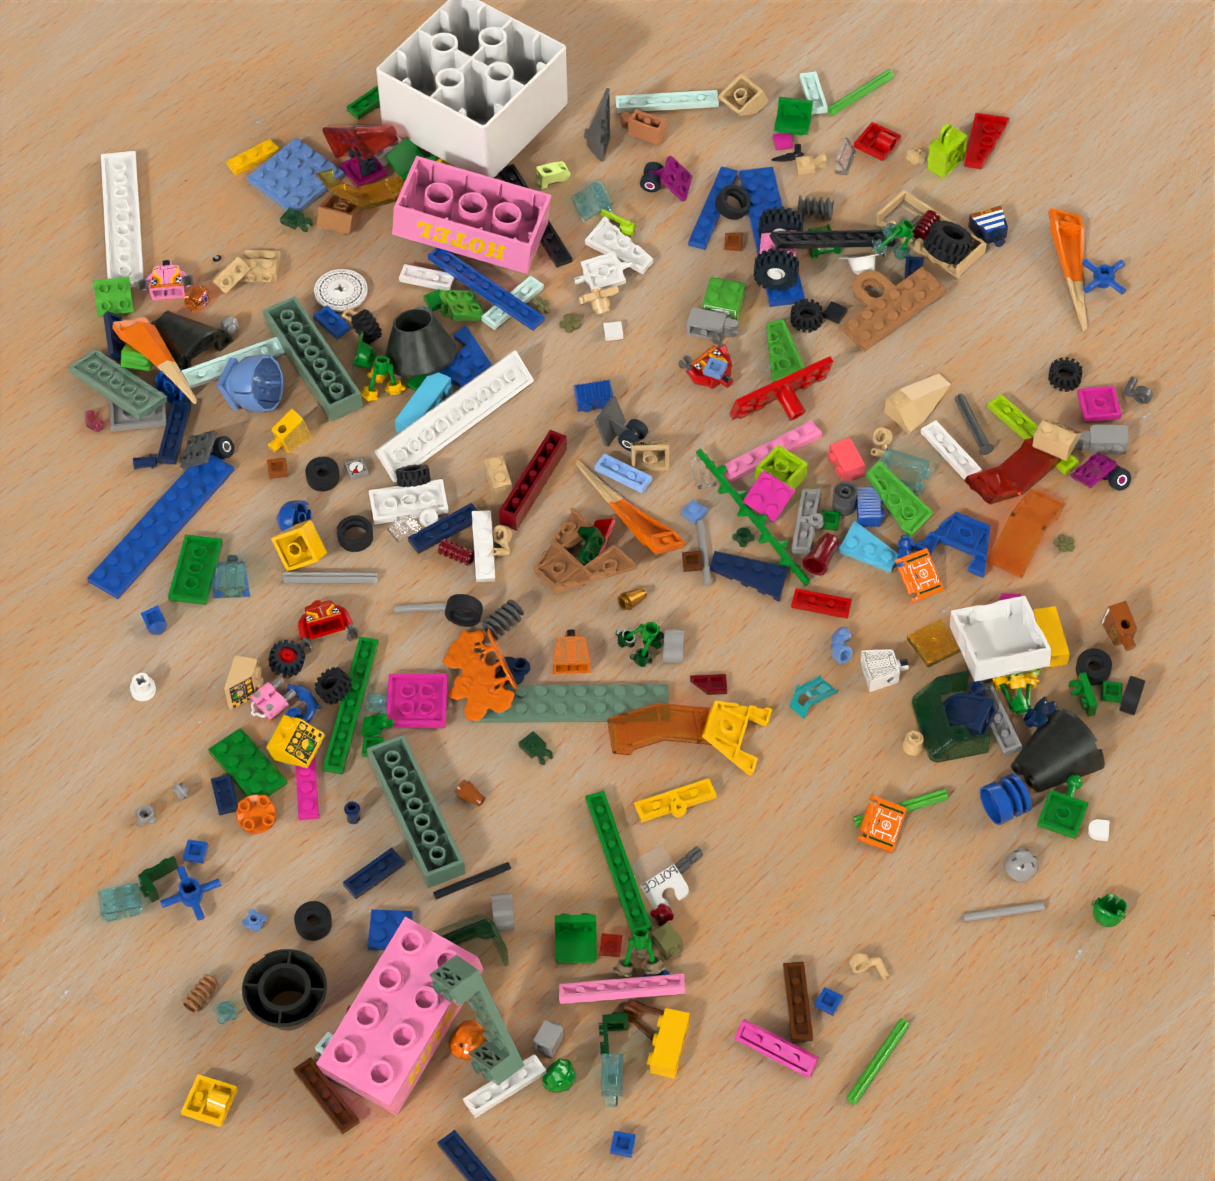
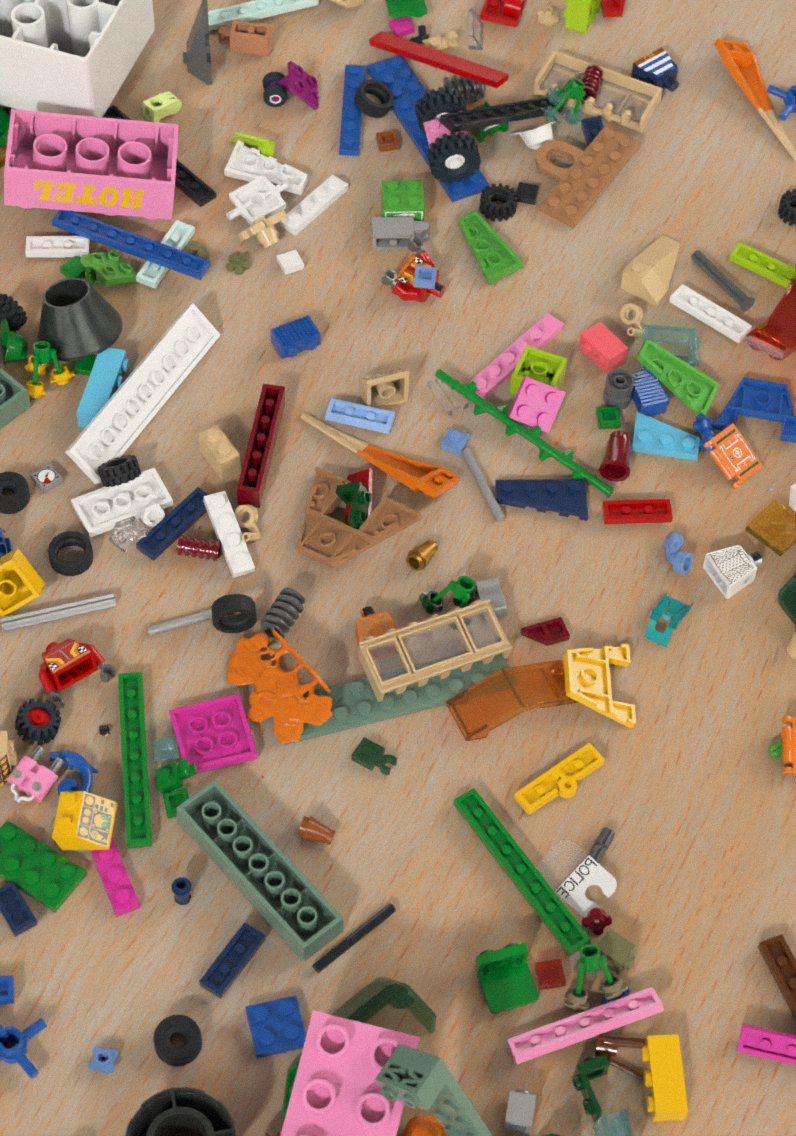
camera: 20 degrees left, 0 degrees up
(256, 814) = (61, 923): orange dish -> none
(338, 691) = (97, 735): black tyre -> none
(468, 361) = (139, 328): blue wing -> none
(503, 911) = (406, 965): light grey axle -> none
(518, 668) = (315, 662): dark blue plate -> none
(592, 200) = (217, 126): clear light blue hinge -> none
(609, 673) = (432, 648): none -> window
(611, 424) = (329, 364): dark grey plate -> none
(650, 285) = (314, 204): none -> white plate
(692, 561) = (474, 497): reddish brown plate -> none
(743, 532) = (521, 457): clear green plate -> none
(783, 391) = (508, 288): red plate -> none
(800, 178) = (439, 59): none -> red tile
(807, 521) = (586, 424): light grey hinge -> none
(948, 242) = (625, 94): black tyre -> none

